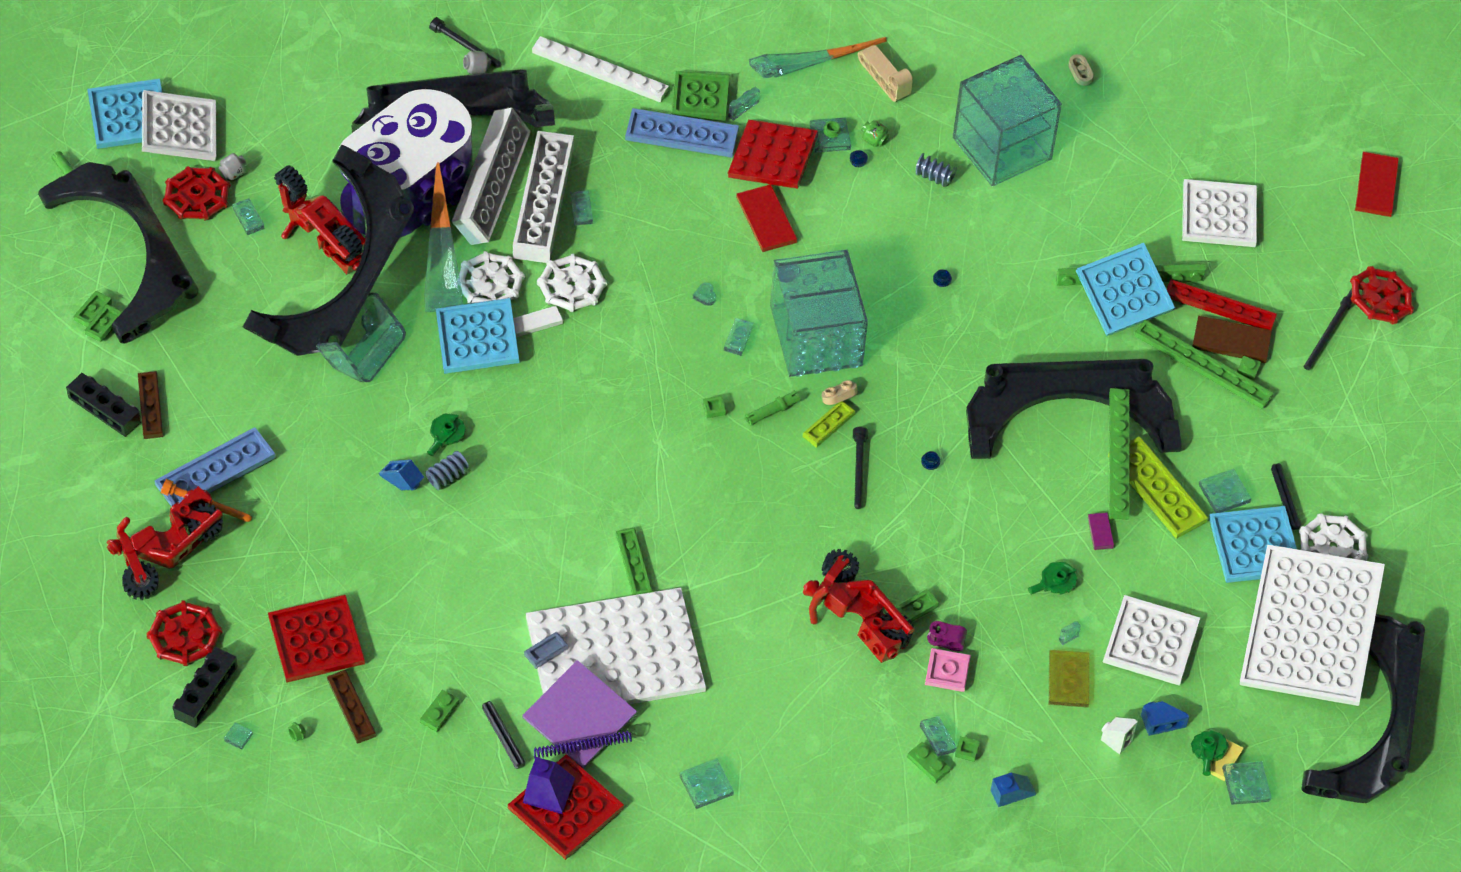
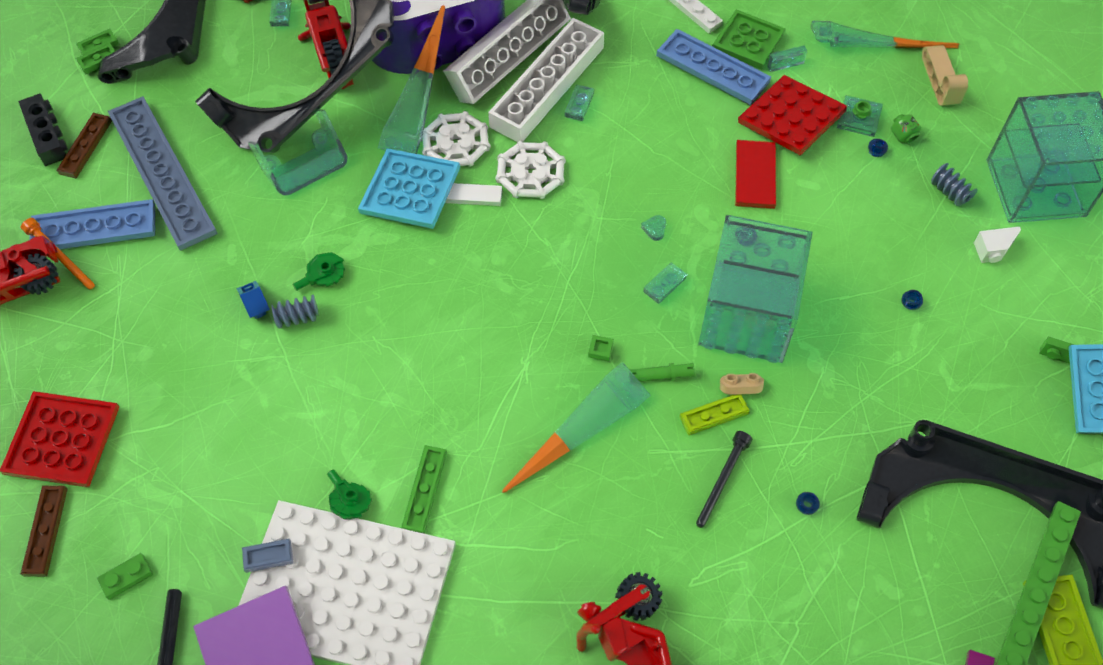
camera: 30 degrees right, 5 degrees up
(242, 401) = (162, 173): none -> sand blue plate
(579, 590) = (348, 499): none -> green piece
(743, 445) = (608, 402): none -> clear light blue plate
(988, 208) = (995, 243): none -> white slope

